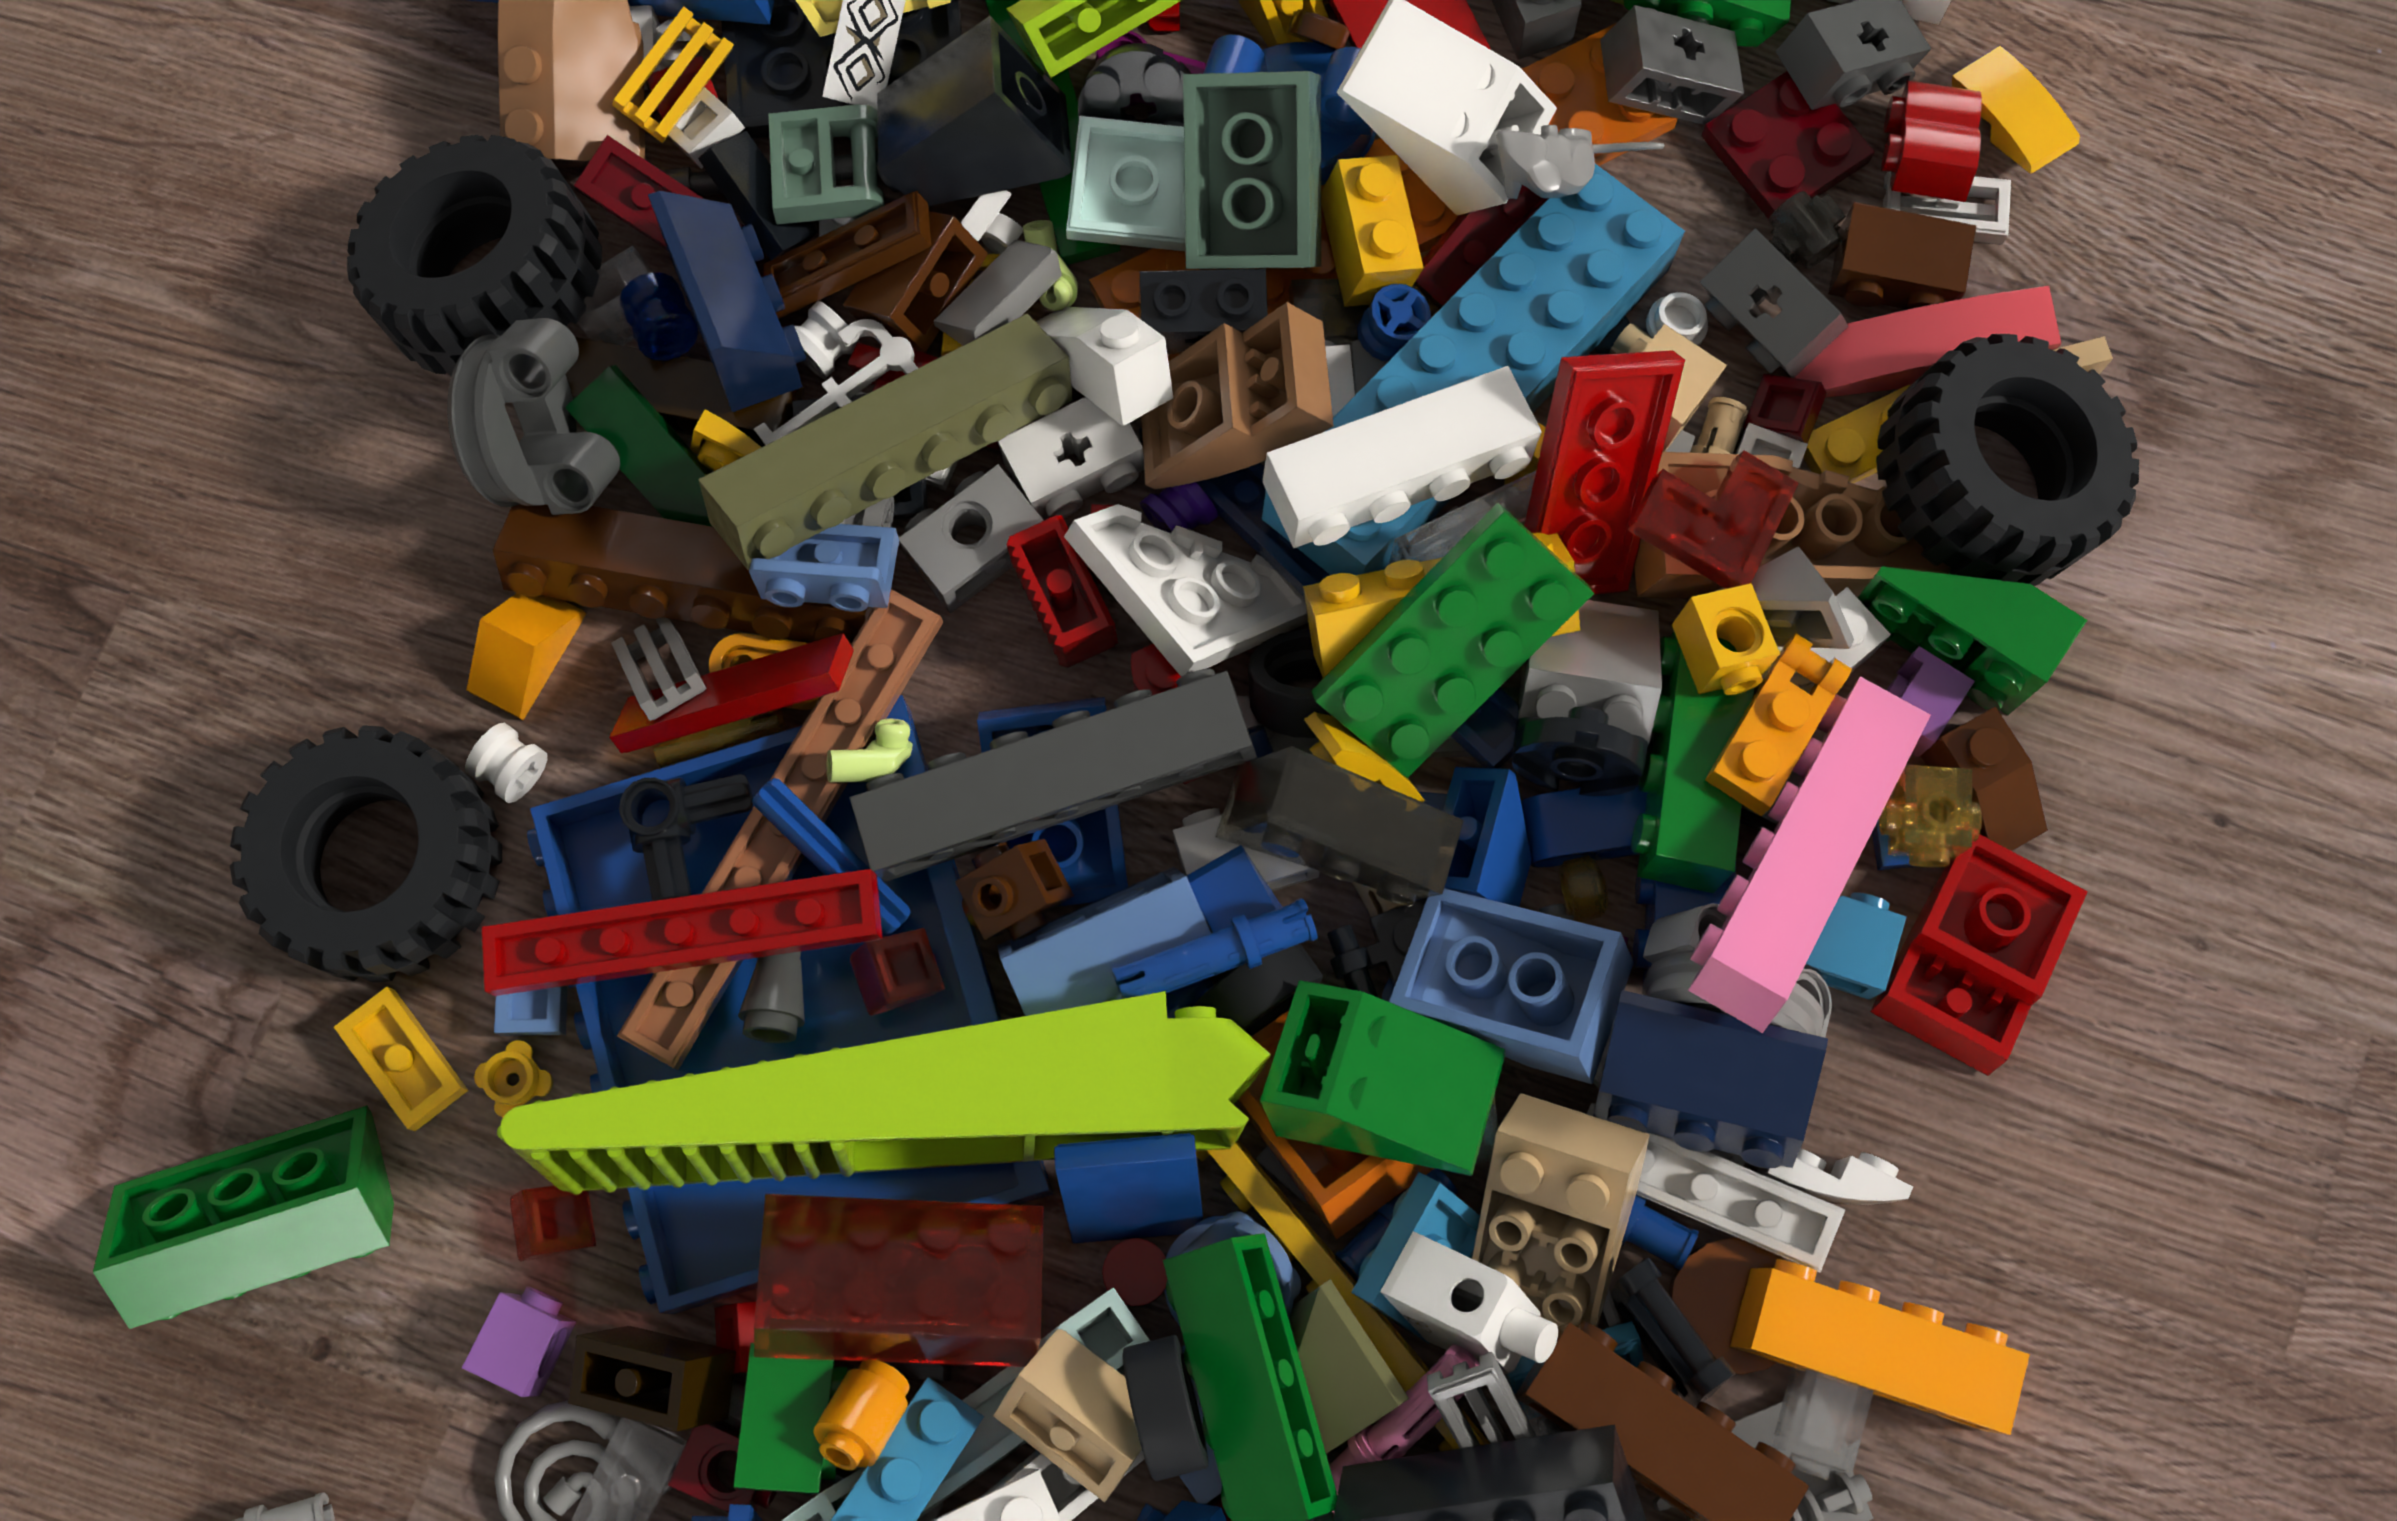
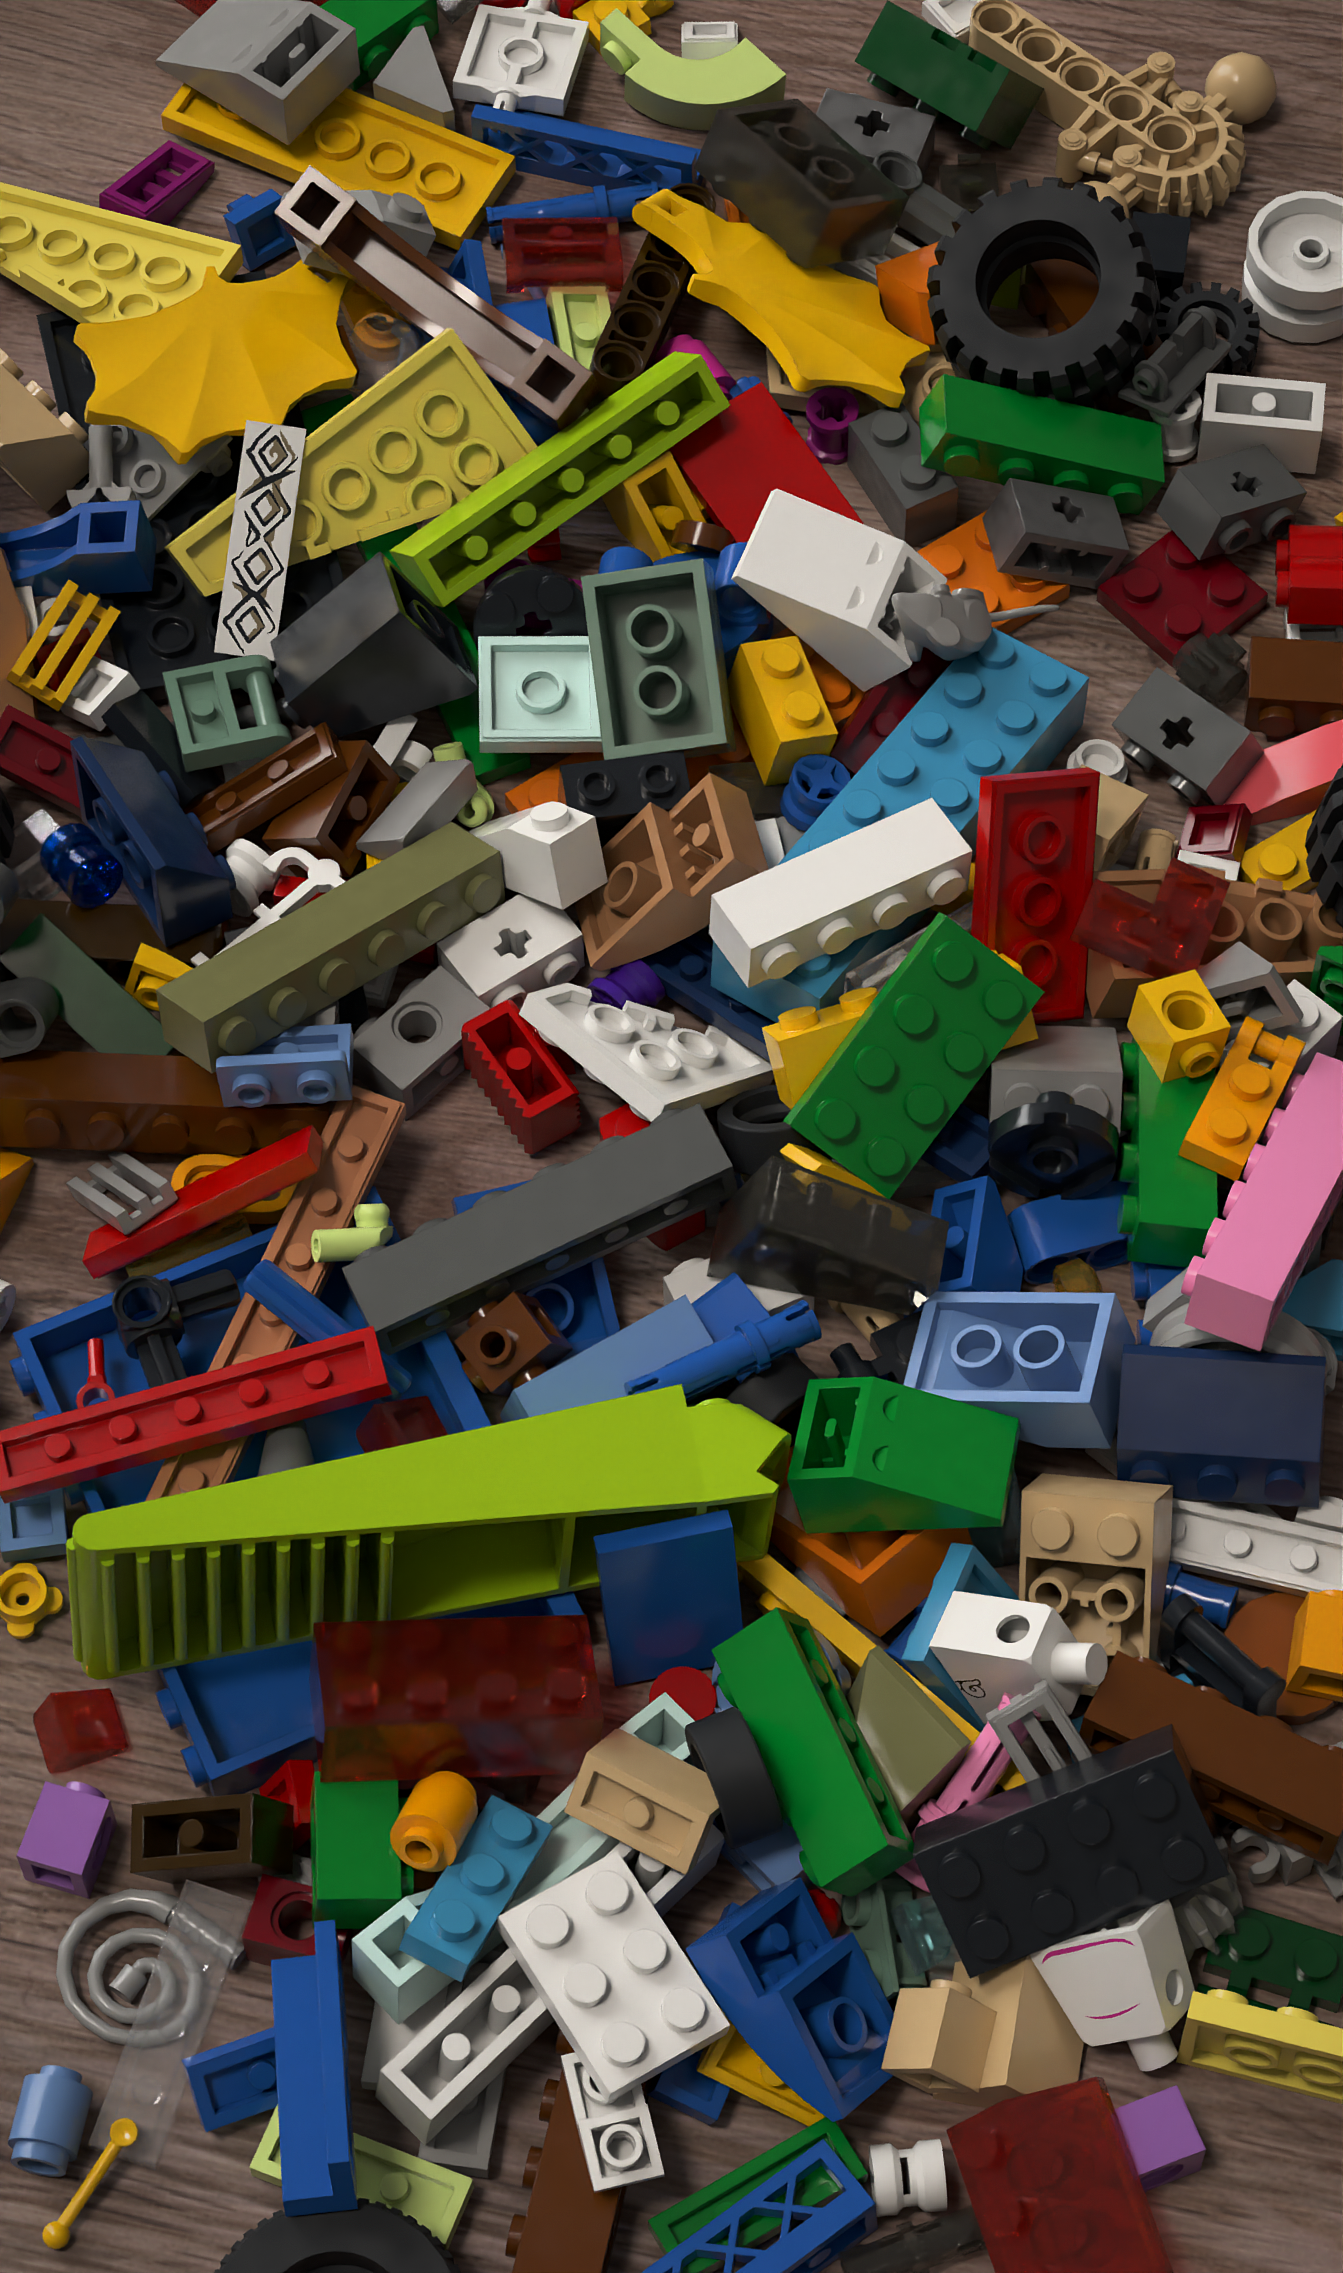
camera: 10 degrees left, 15 degrees down
(603, 874) = (97, 1381): none -> red hand

